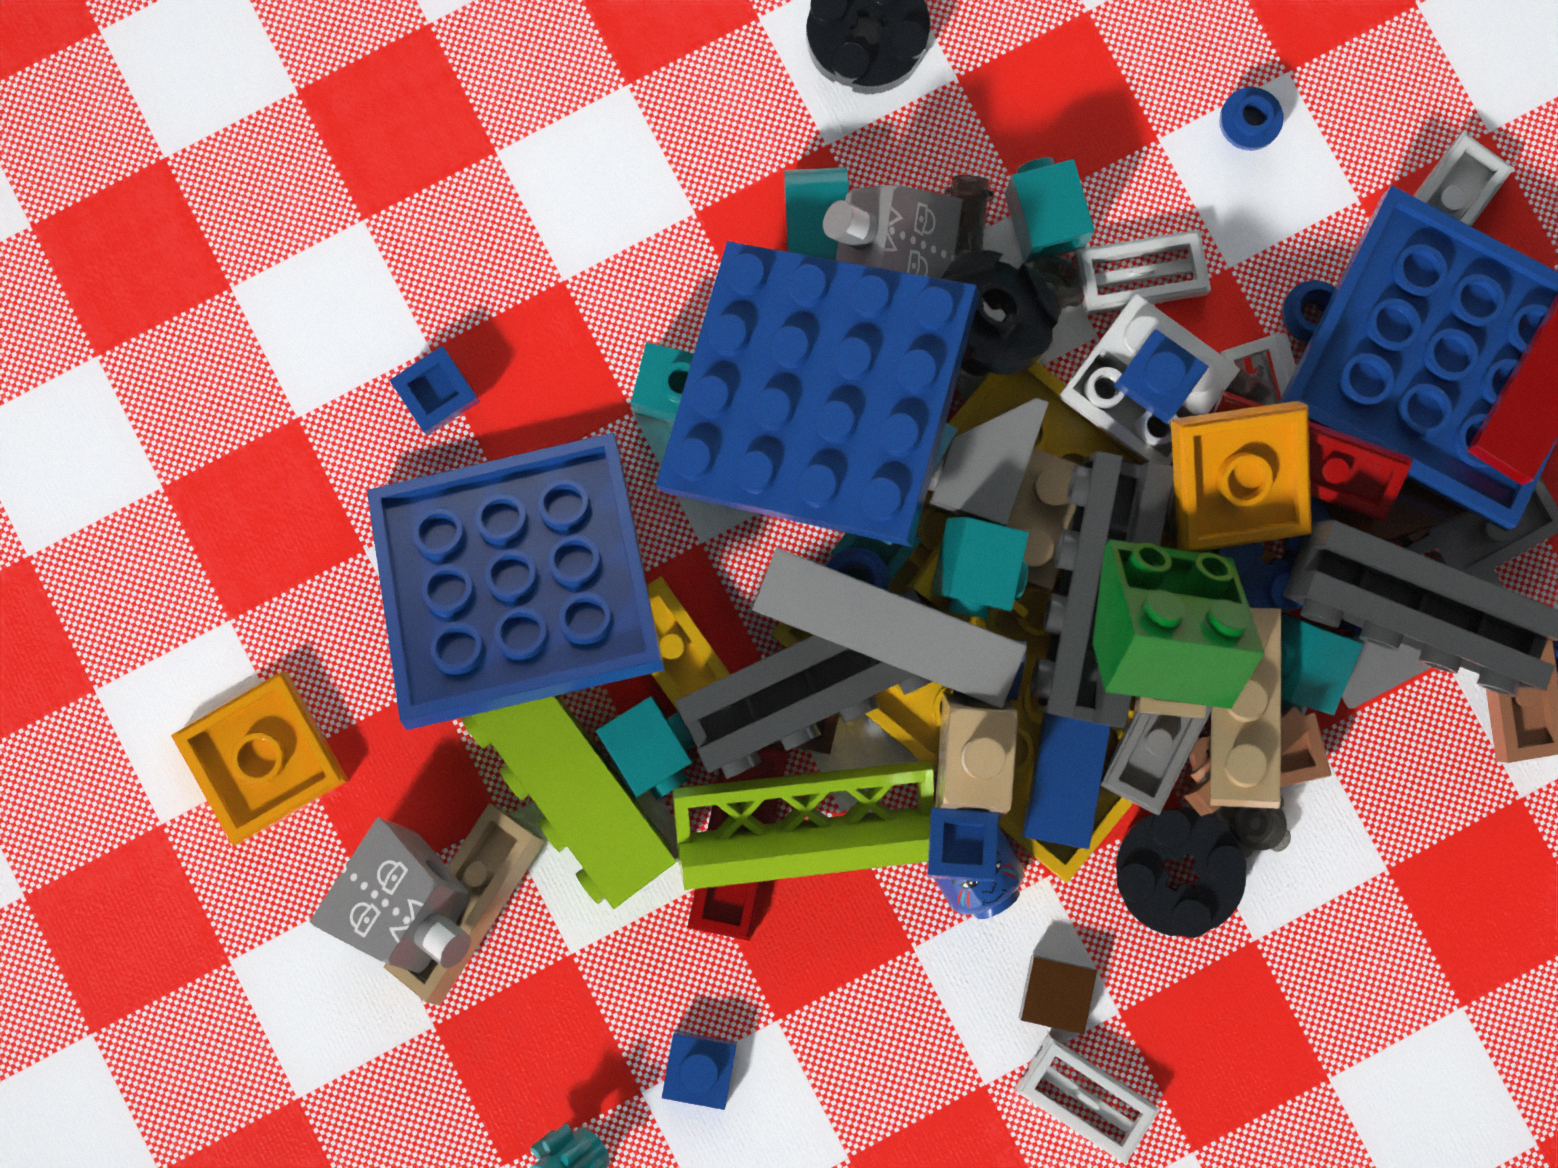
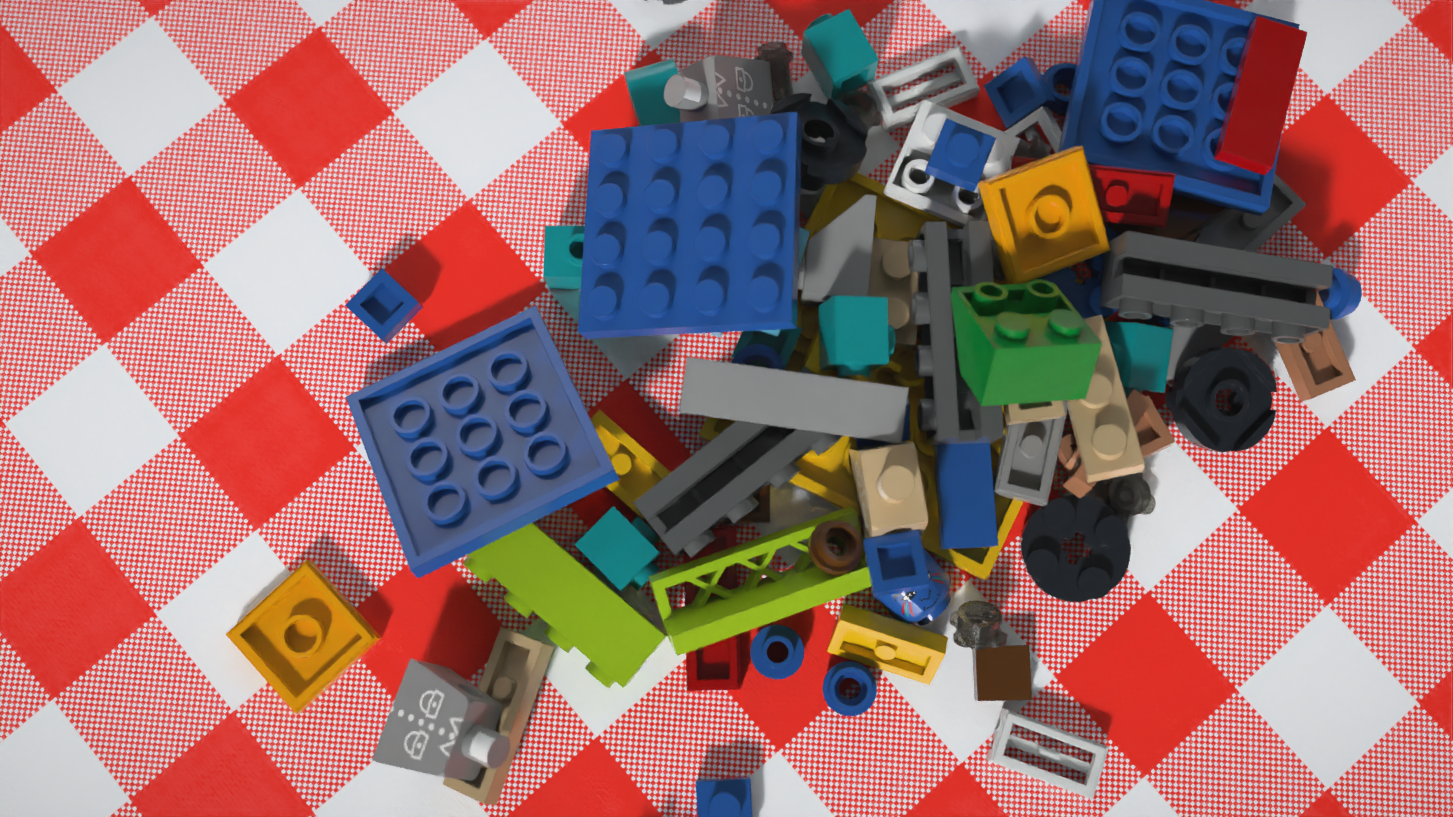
camera: 15 degrees left, 5 degrees down
(802, 929) = (759, 651): none -> blue plate
(883, 989) = (865, 695): none -> blue plate
(914, 803) = (844, 537): none -> reddish brown plate
(932, 930) = (887, 644): none -> yellow plate
(1043, 934) = (978, 625): none -> clear smoke plate
(1257, 306) = (1019, 92): none -> blue plate
(1369, 725) = (1195, 392): none -> black plate

